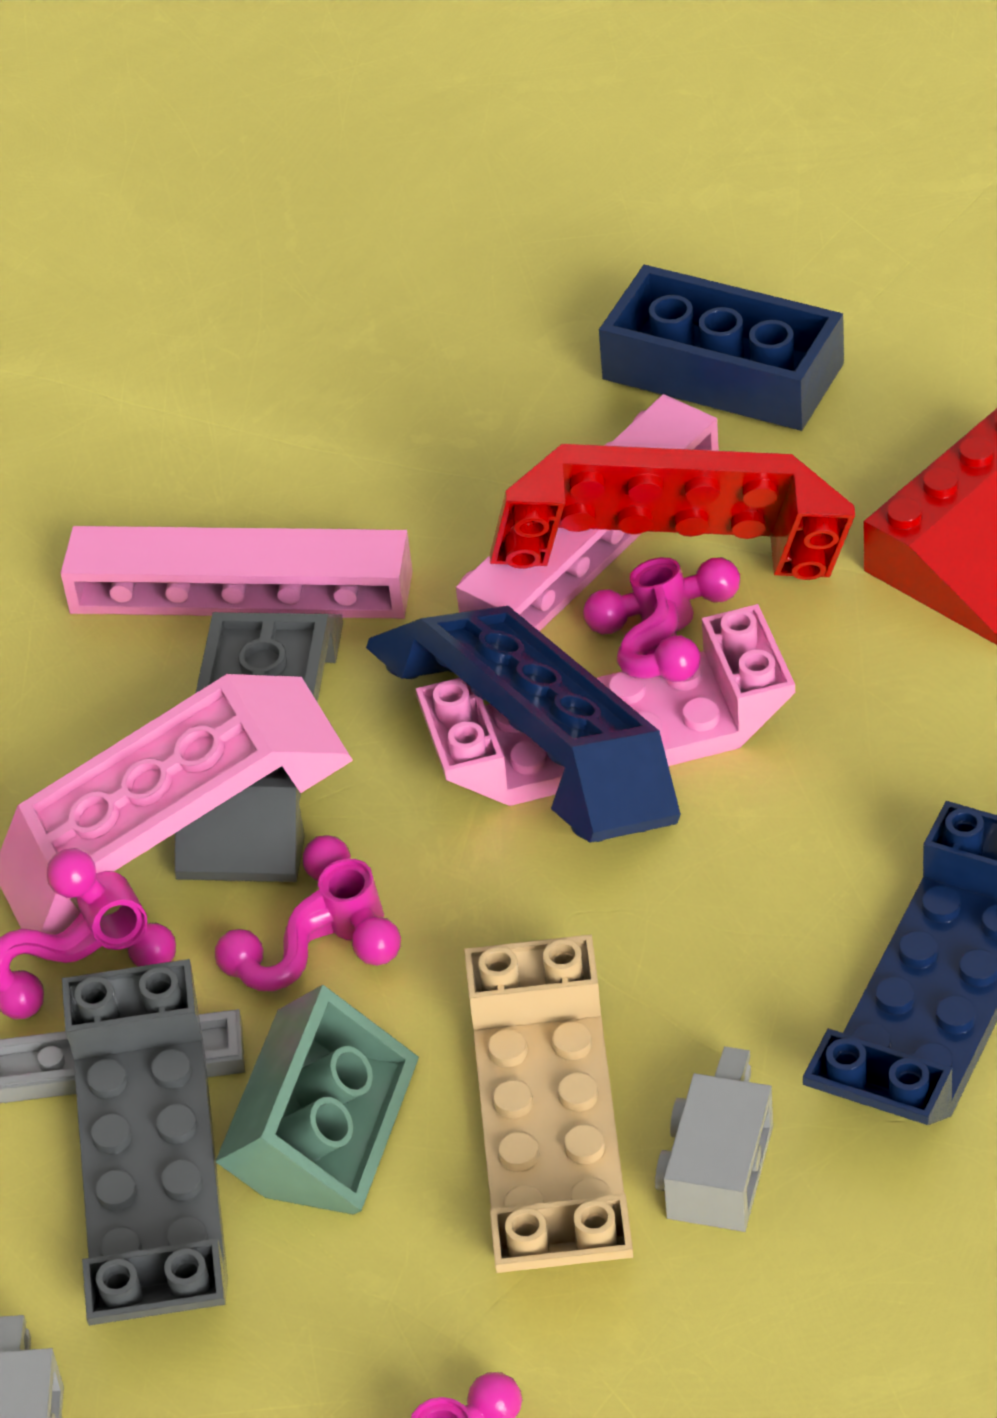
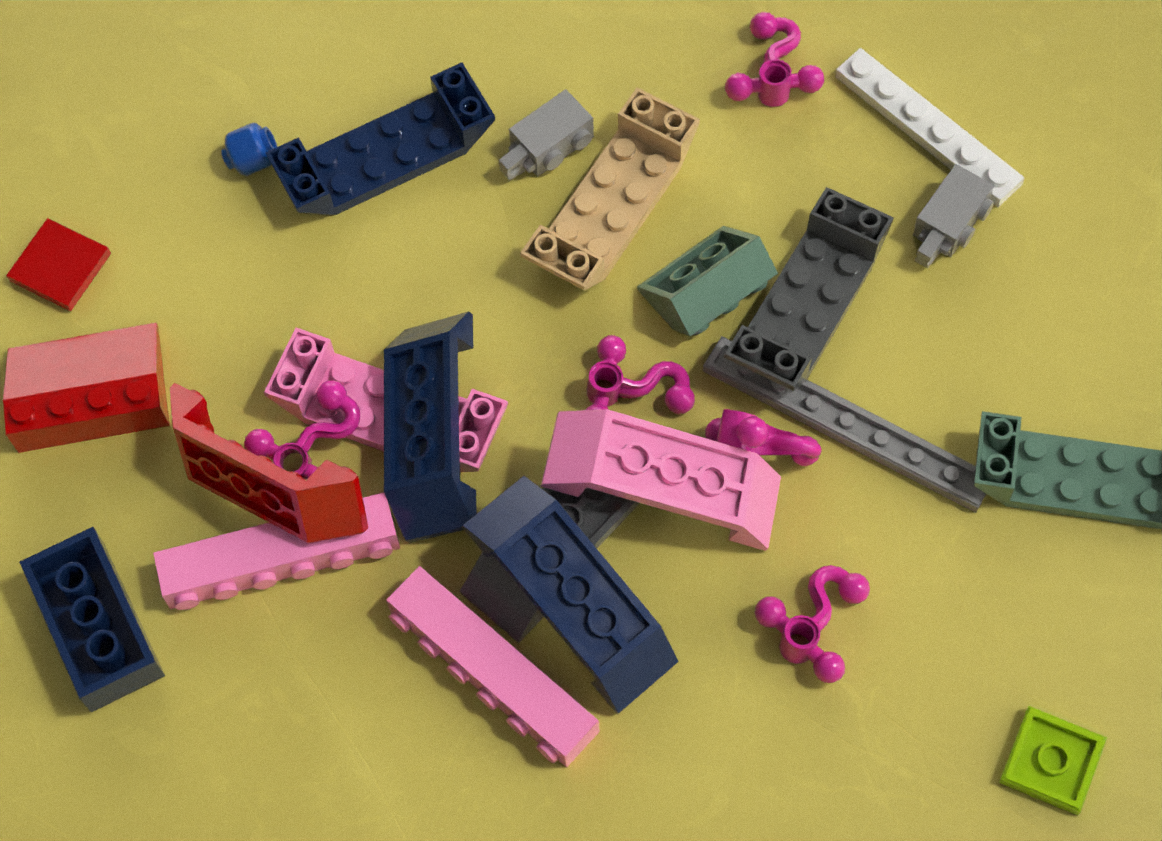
camera: 145 degrees left, 20 degrees up
(195, 614) = (574, 590): none -> dark blue slope

